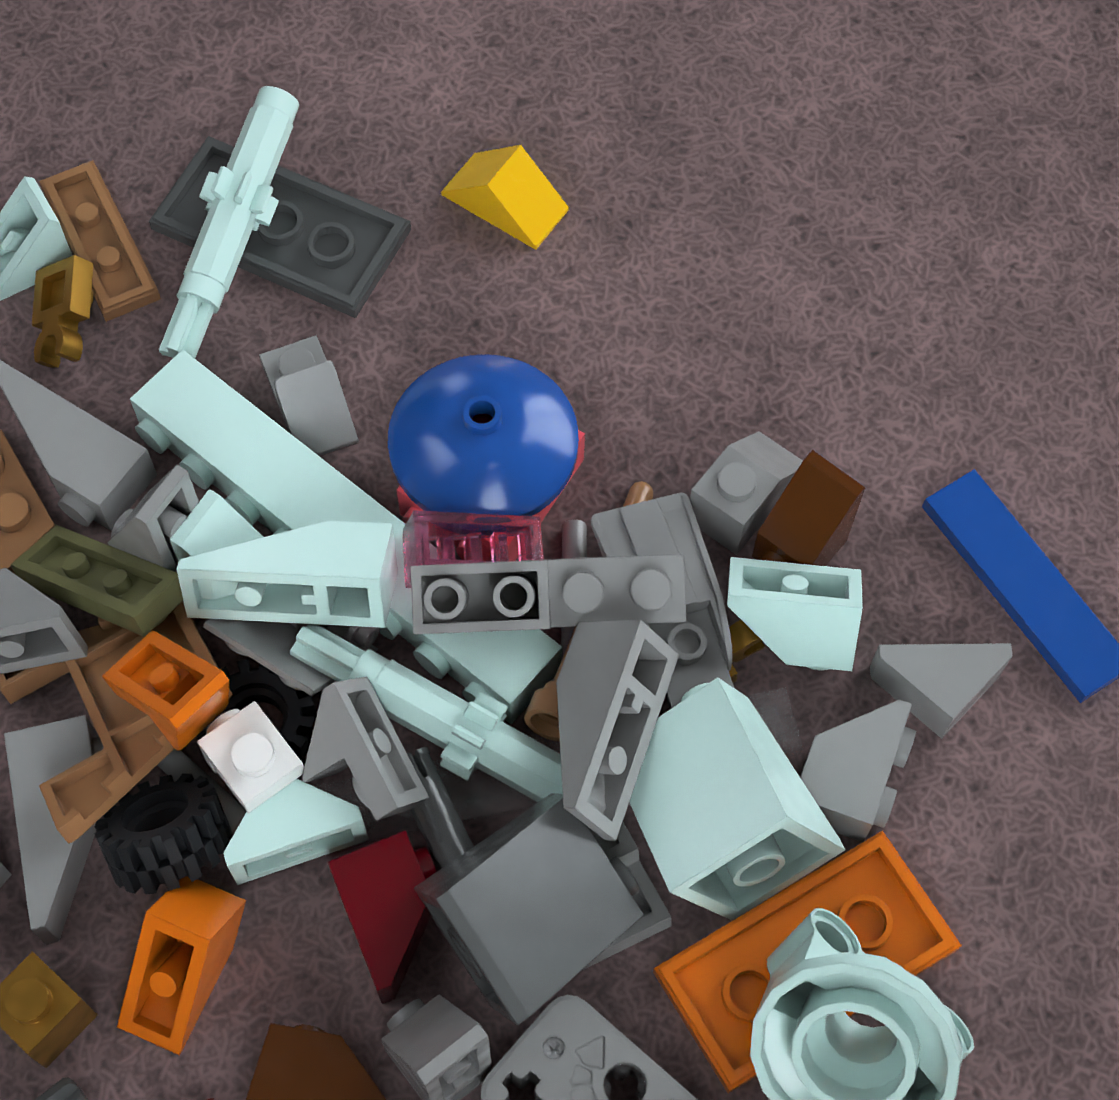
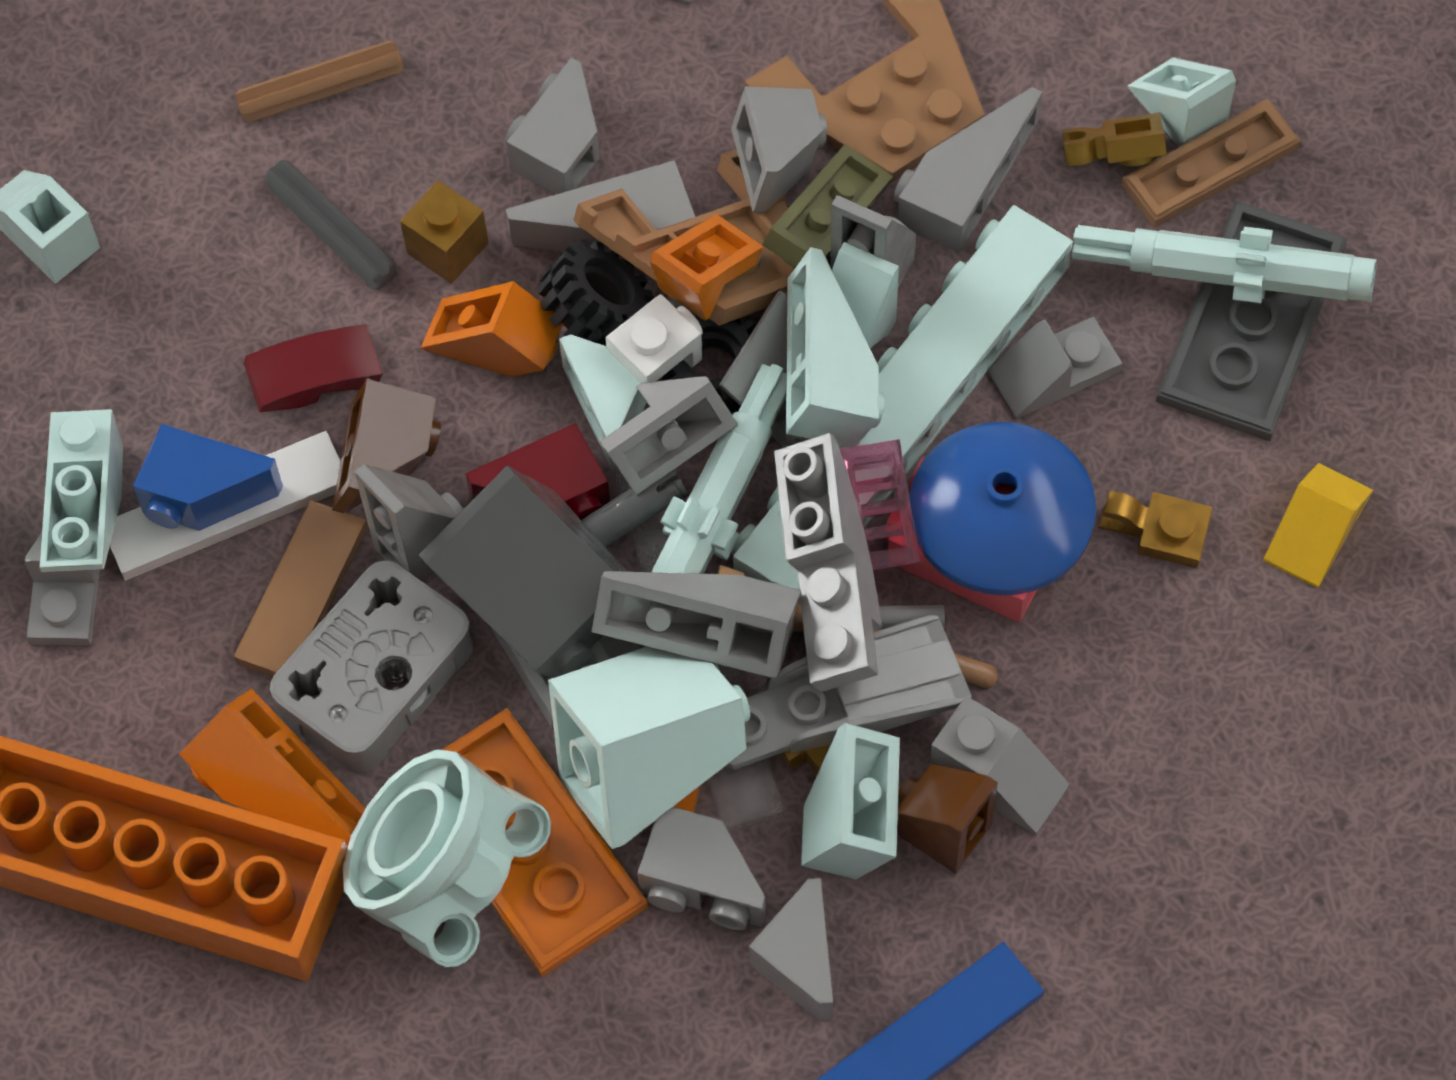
camera: 90 degrees right, 0 degrees up
(498, 317) = (1168, 527): none -> pearl gold plate

